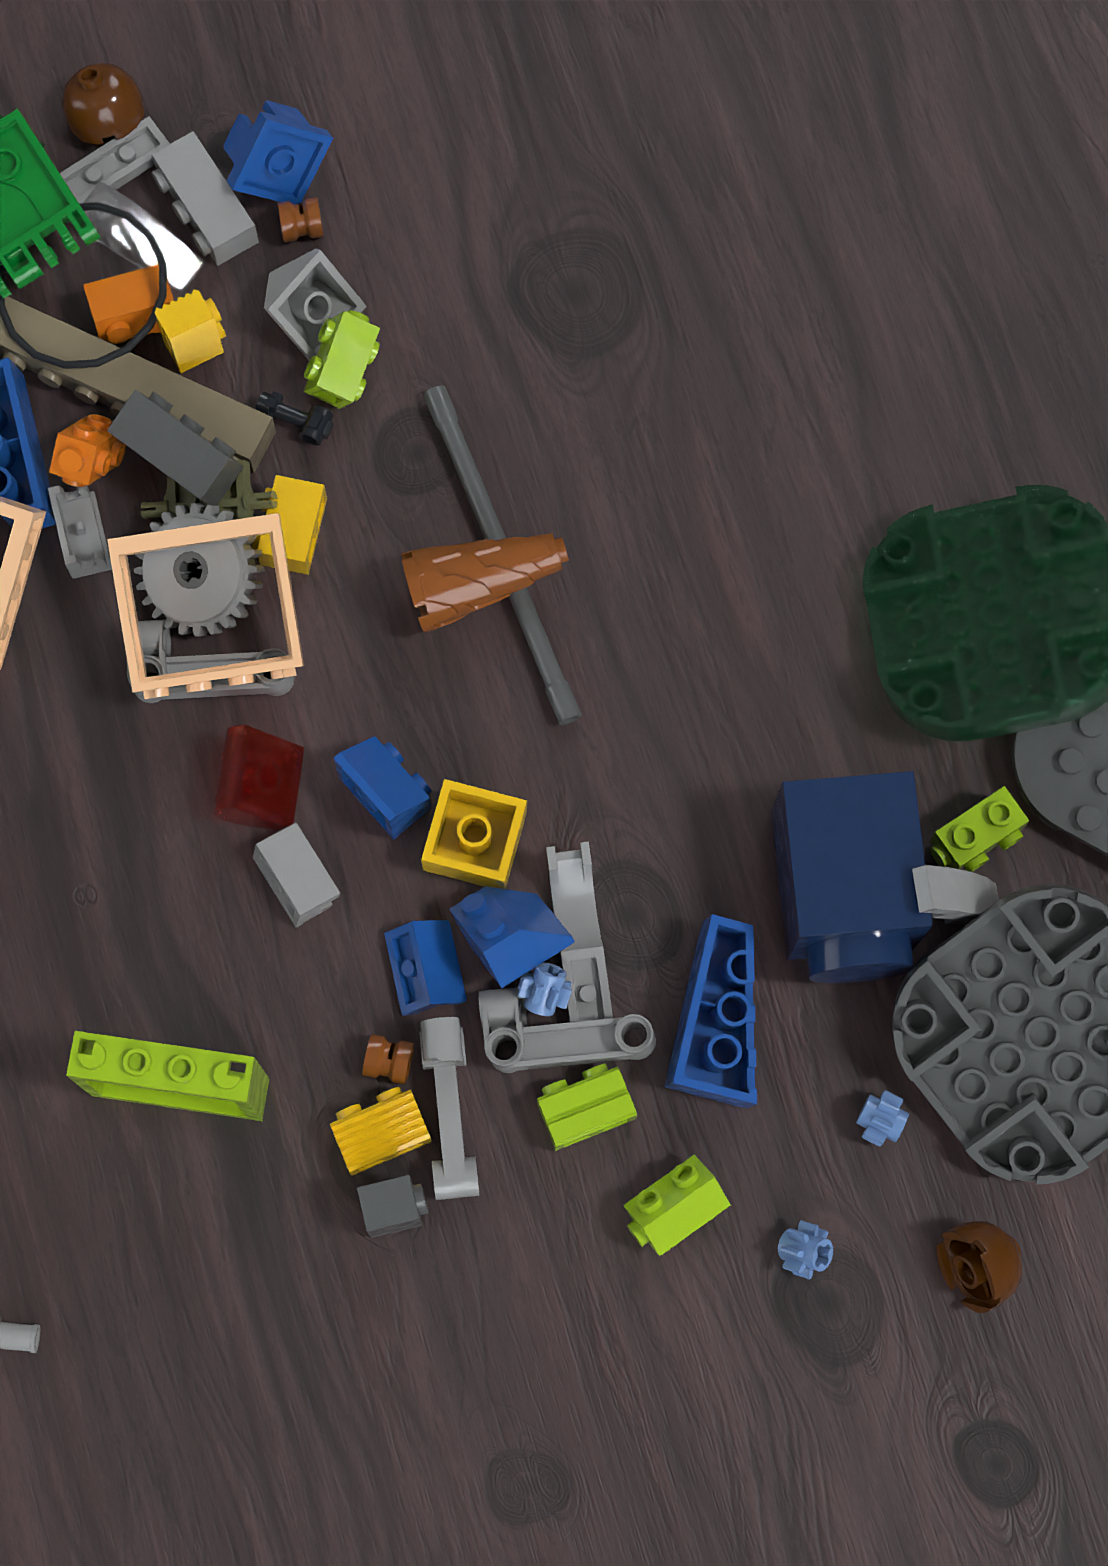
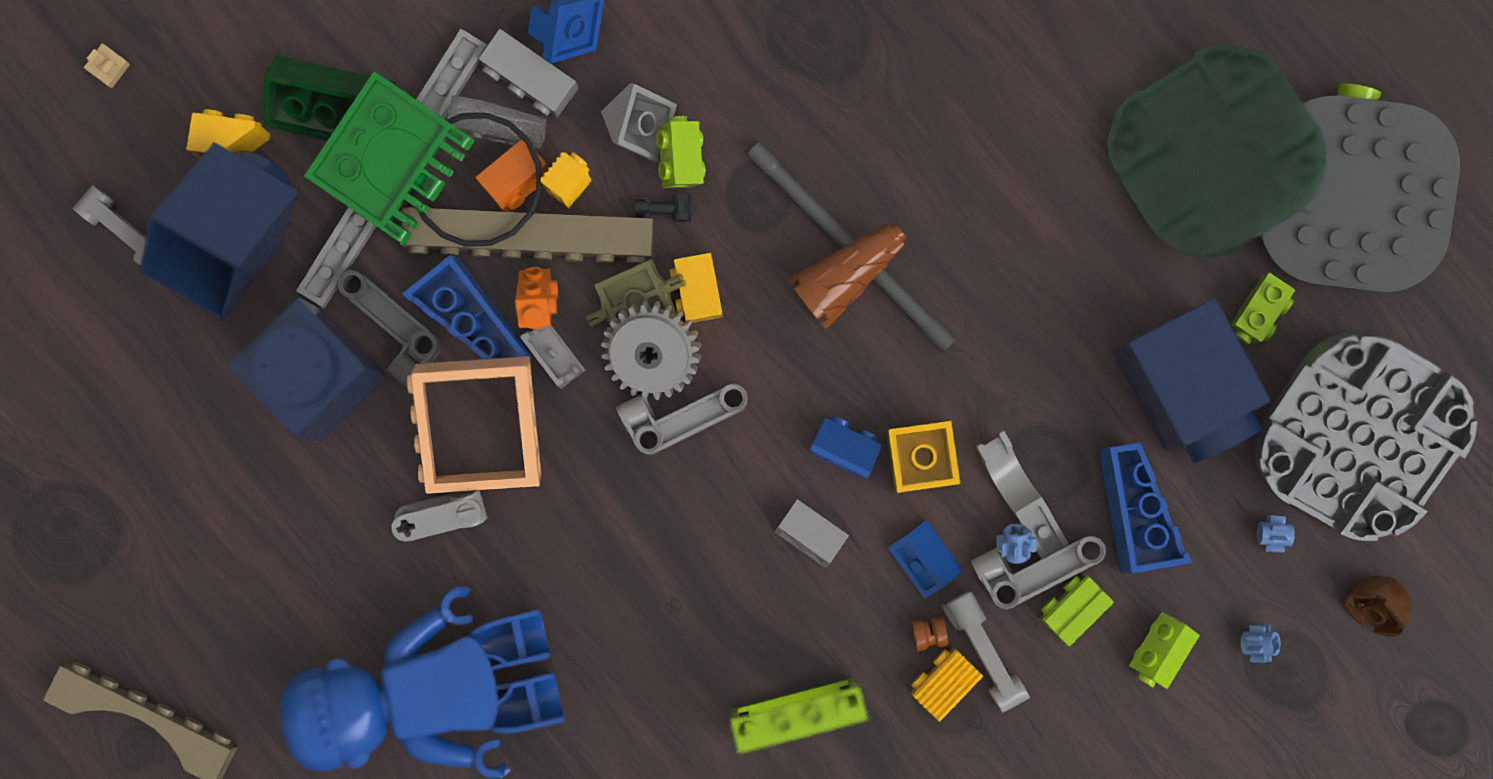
camera: 20 degrees left, 10 degrees up
(102, 103) = (424, 33): reddish brown cylinder -> none
(176, 446) = (598, 271): dark grey brick -> none
(194, 535) = (691, 428): light nougat window -> none
(258, 779) = (757, 479): clear red brick -> none
(300, 219) = (603, 61): dark orange wheel -> none
(392, 1206) = (979, 733): dark grey brick -> none
(510, 931) = (977, 513): blue slope -> none
(953, 893) = (1272, 367): light grey slope -> none

